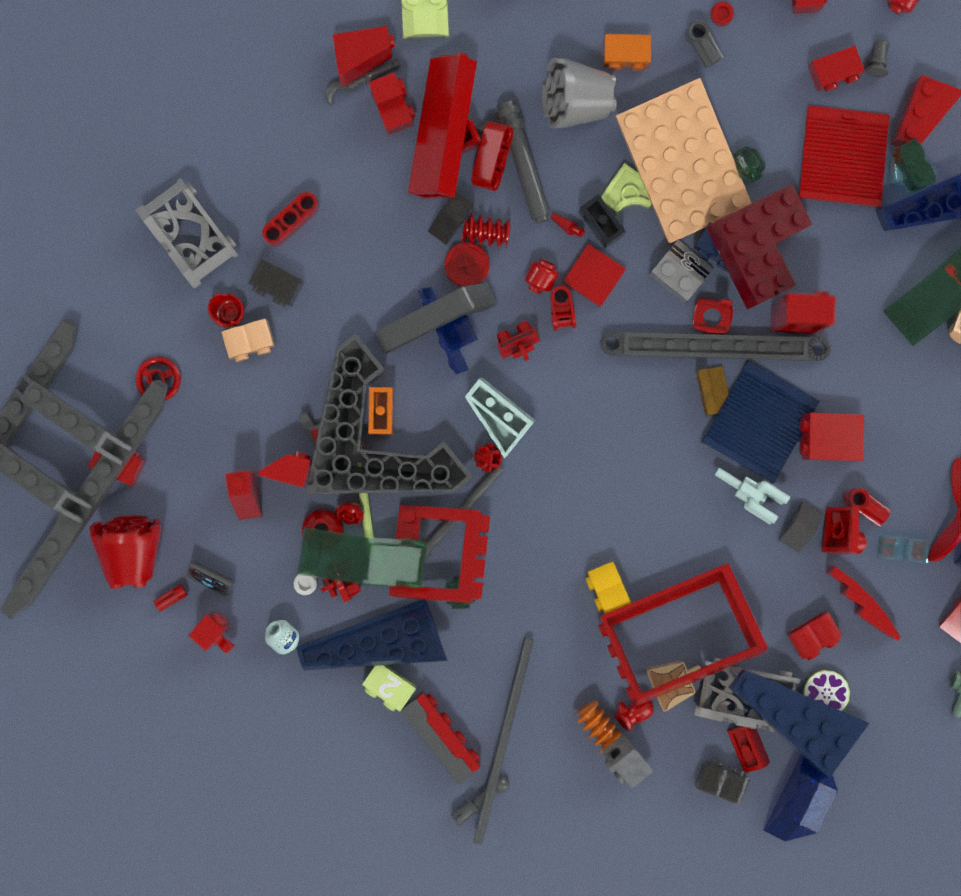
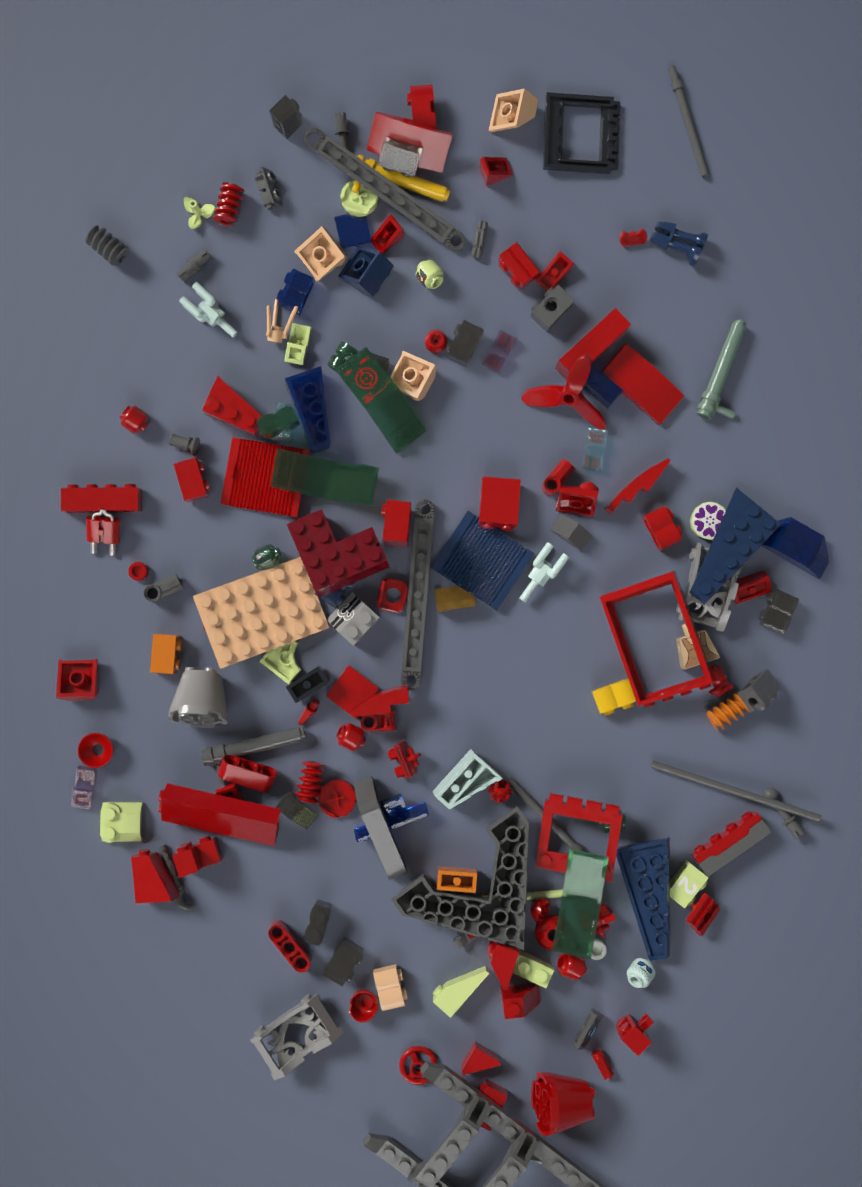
camera: 85 degrees left, 0 degrees up
(170, 450) = (479, 1059): none -> red slope
(247, 418) = (456, 991): none -> yellowish green slope
(280, 506) = (533, 969): none -> yellowish green brick
(285, 554) = (571, 966): none -> red head
(327, 251) = (318, 919): none -> clear smoke brick
(355, 707) = (702, 914): none -> red piece
(587, 311) = (382, 701): none -> red slope
(848, 225) = (324, 478): none -> clear green windscreen

